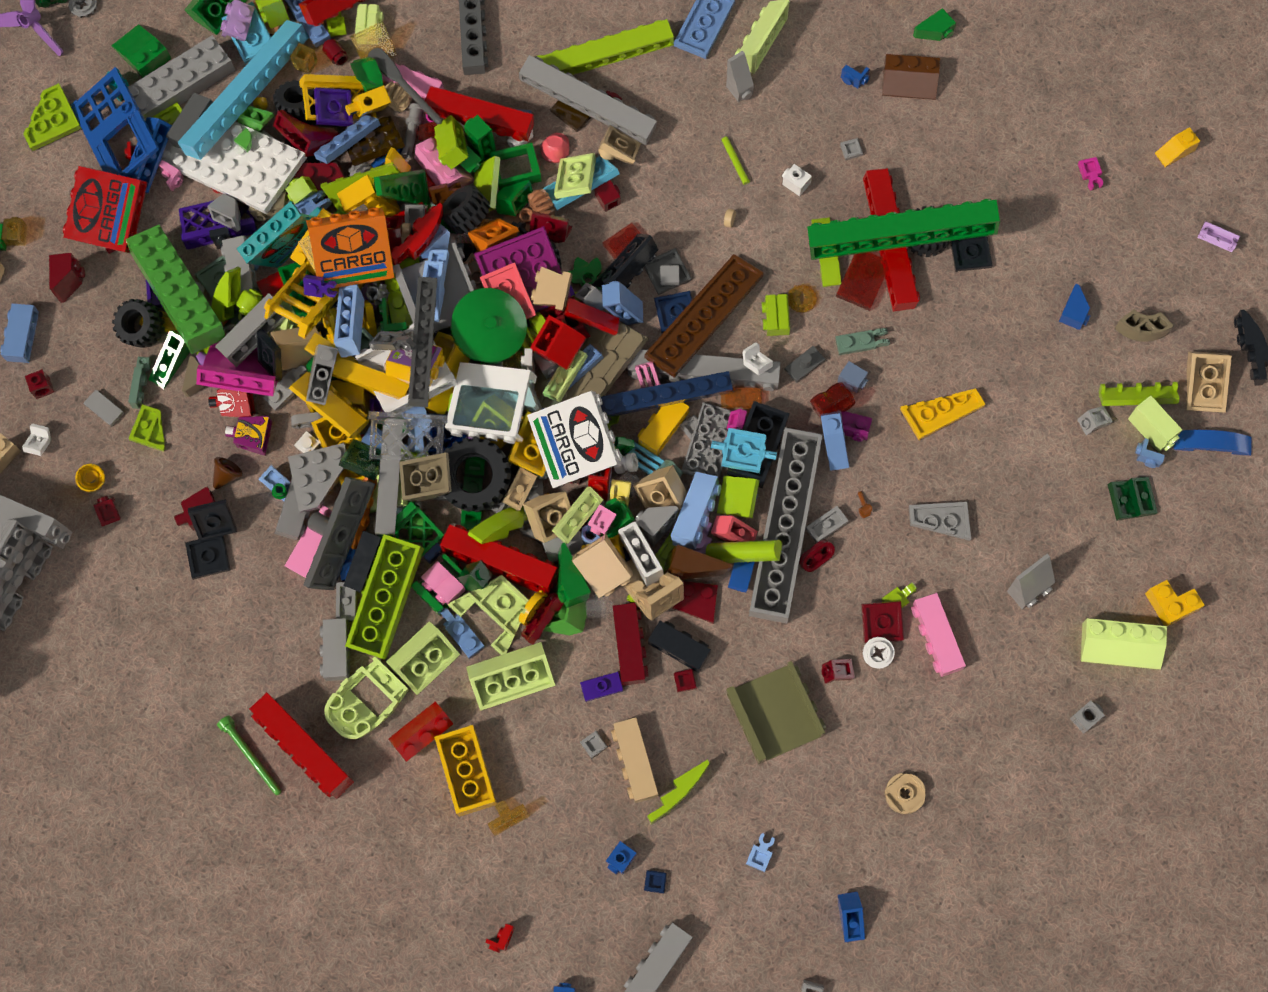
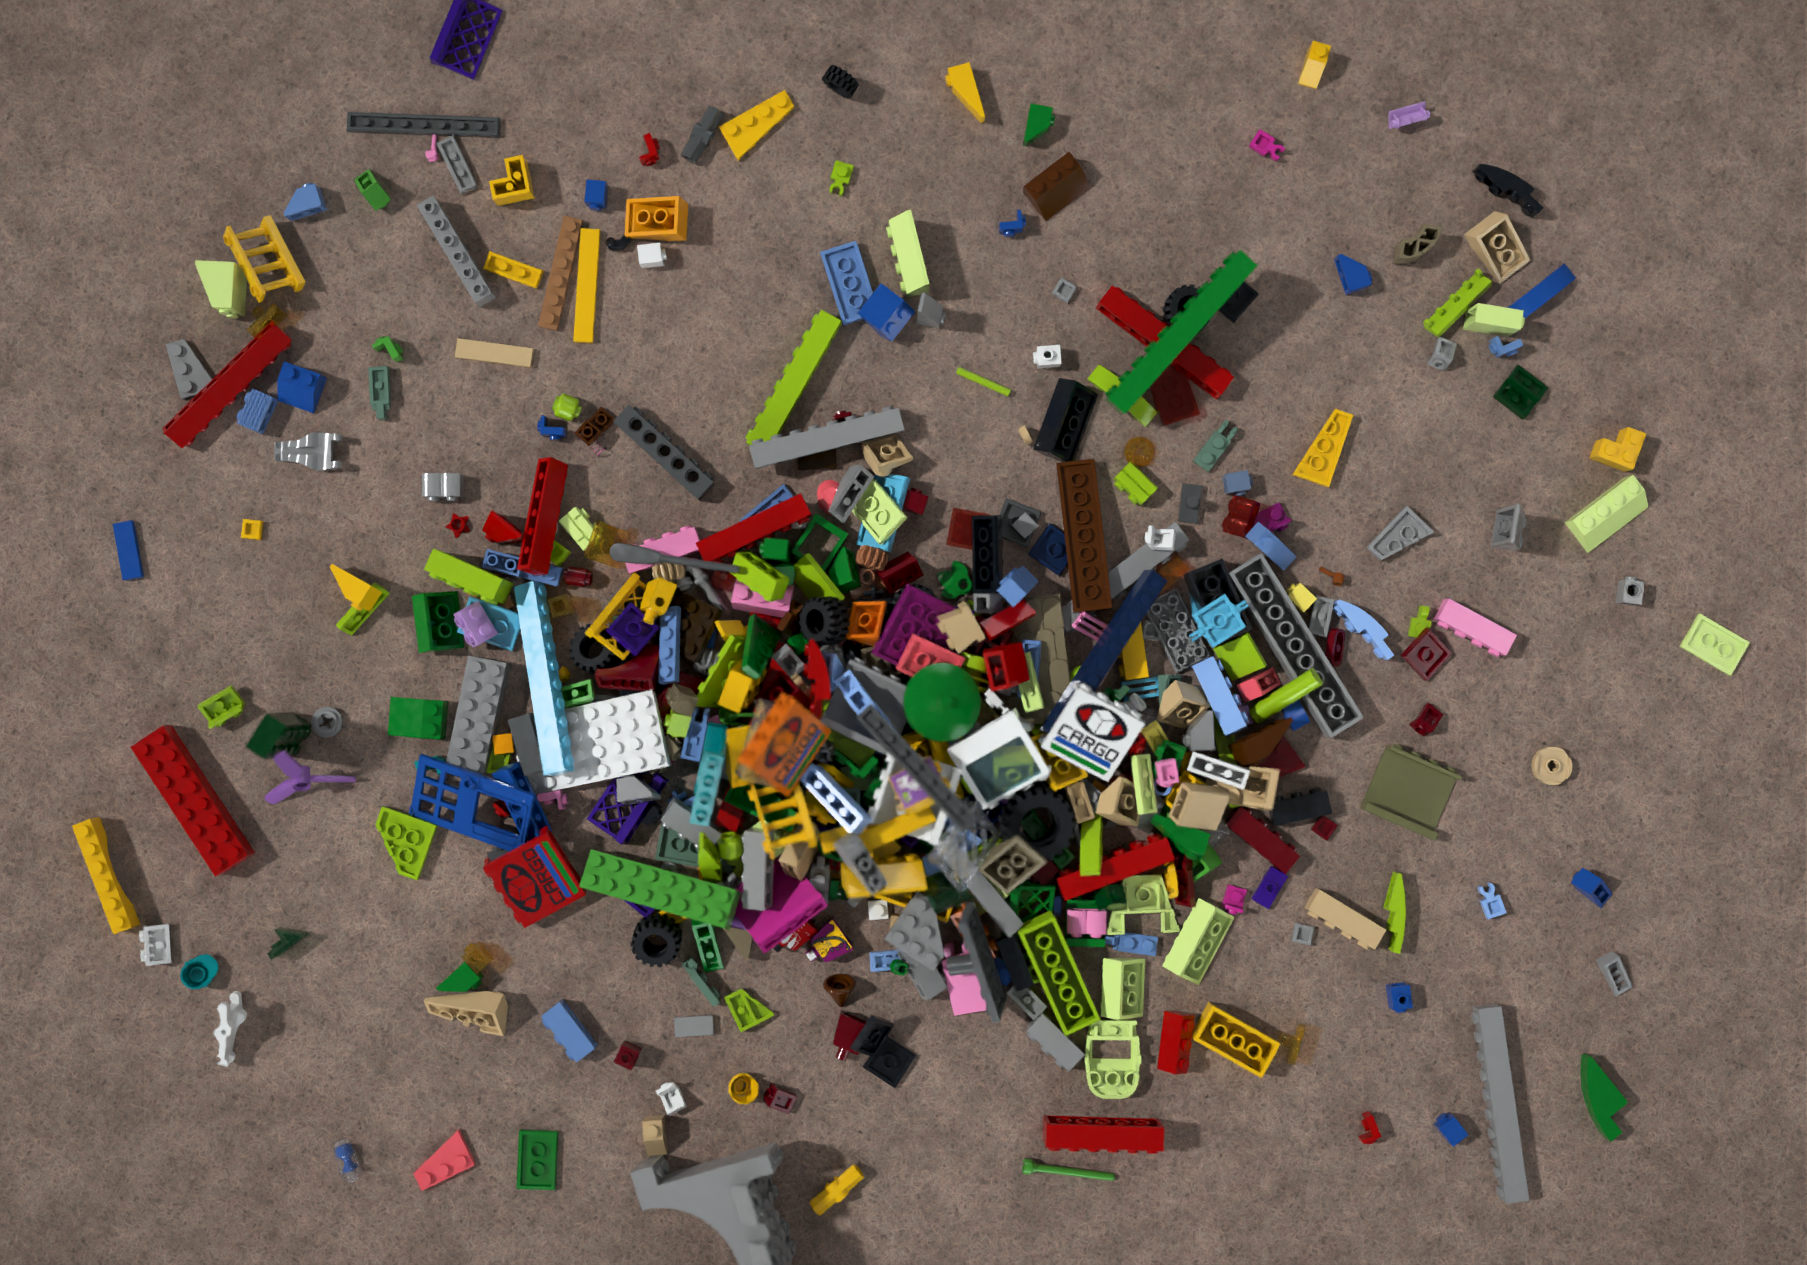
camera: 55 degrees left, 15 degrees up
(64, 275) = (559, 957): dark red slope -> none
(78, 610) = (836, 1190): none -> yellow piece
(173, 109) = (503, 743): none -> light orange tile
(244, 140) = (591, 721): bright green tile -> none
(269, 355) = (791, 876): black tile -> none
(293, 403) = (837, 890): none -> dark green bracket
(316, 172) = (681, 699): none -> dark tan brick
(317, 287) = (786, 797): dark purple plate -> none
(367, 73) = (630, 575): green slope -> none
(392, 341) = (893, 790): dark grey hinge -> none
(399, 115) = (684, 584): none -> light grey plate
(447, 516) = (1044, 873): none -> dark red brick
(566, 670) = (1234, 899): none -> dark pink bracket
(568, 147) = (850, 491): none -> light grey slope
(655, 882) = (1435, 989): dark blue tile -> none
(709, 56) = (886, 312): none -> blue slope
(737, 419) = (1187, 601): dark pink plate -> none
(768, 232) = (1065, 420): none -> black slope
(823, 496) = (1300, 597): none -> light yellow brick
(854, 554) = (1358, 621): none -> light blue slope
(887, 653) = (1444, 688): white gear -> none
(1123, 820) = (1714, 644): none -> yellowish green tile

